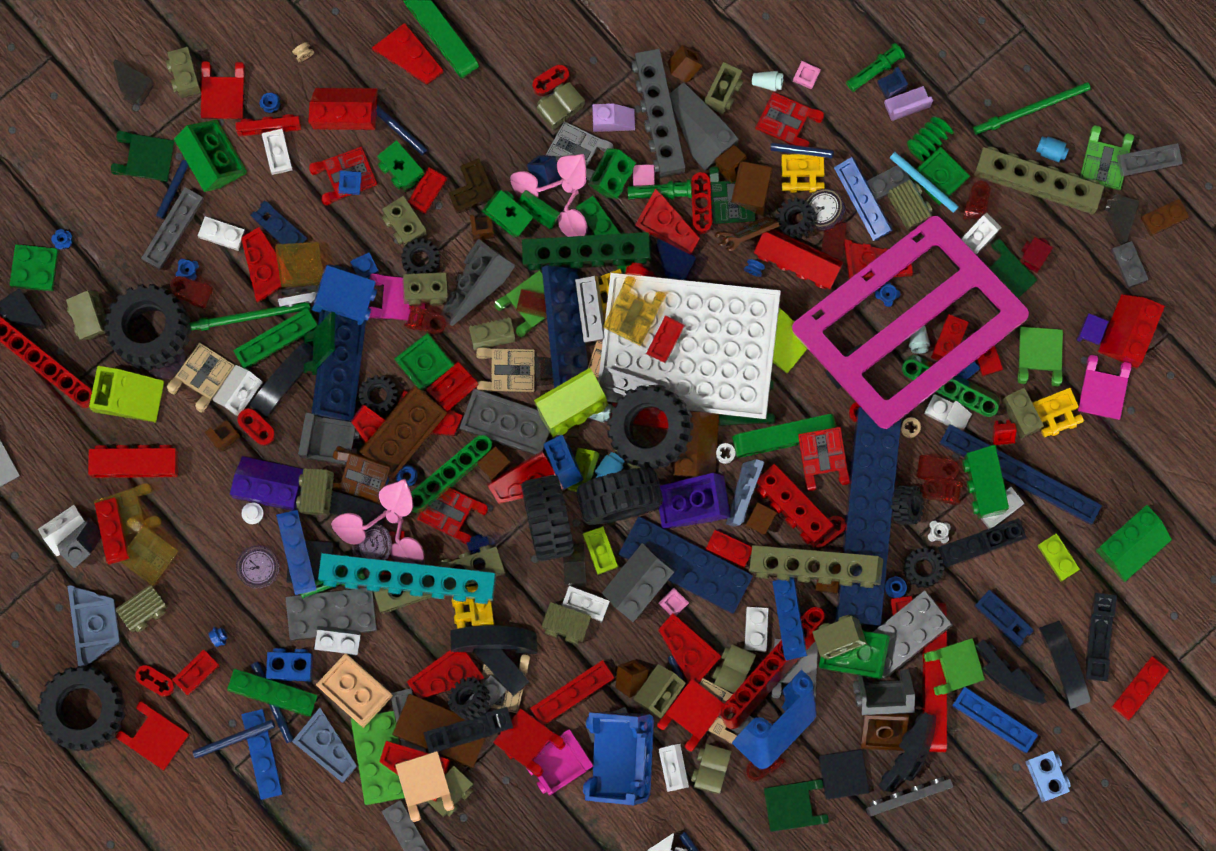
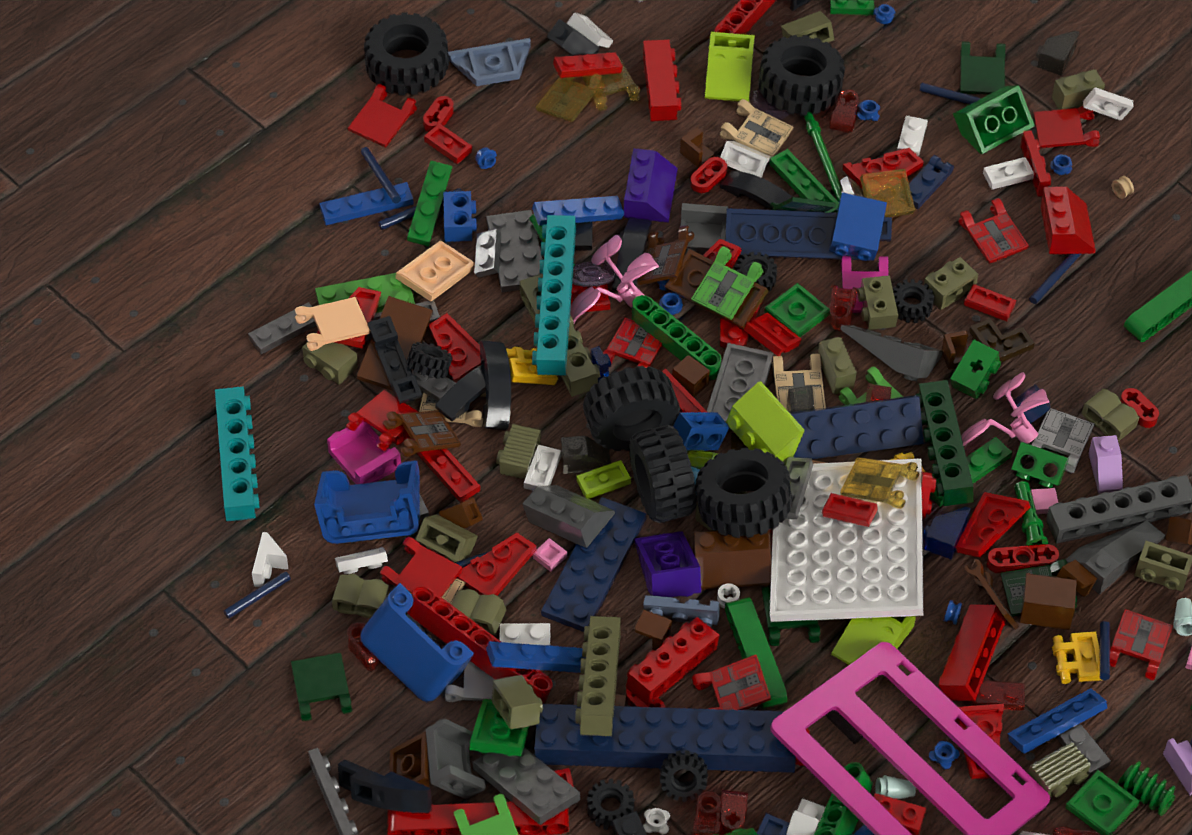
camera: 90 degrees right, 25 degrees down
(141, 609) = (510, 96): olive brick -> none
(172, 228) = (910, 95): flat silver plate -> none
(206, 41) = (1108, 103): none -> white plate
(252, 513) = (617, 179): white plate -> none
(257, 567) = (561, 185): clear purple tile -> none
(315, 491) = (642, 218): olive brick -> none
(325, 747) = (375, 251): sand blue wing -> none
(349, 182) = (985, 231): blue plate -> none
(364, 266) = (897, 255): blue plate -> none
(397, 155) = (1012, 275): green brick -> none
(407, 52) = (1141, 280): red wing -> none
(409, 423) = (725, 288): none -> bright green flag
(539, 209) = (985, 401): green plate -> none
(543, 704) = (426, 429): none -> reddish brown flag
(590, 308) = (880, 449): plate -> none
(729, 548) = (619, 601): red plate -> none
(804, 225) = (1020, 648): black tyre -> none
(828, 208) = (1036, 678): tile -> none
(843, 774) = (358, 732): black tile -> none
(895, 594) = (584, 783): blue plate -> none
(906, 432) = (775, 789): tan bush -> none
(924, 182) = (1089, 781): medium azure bar -> none

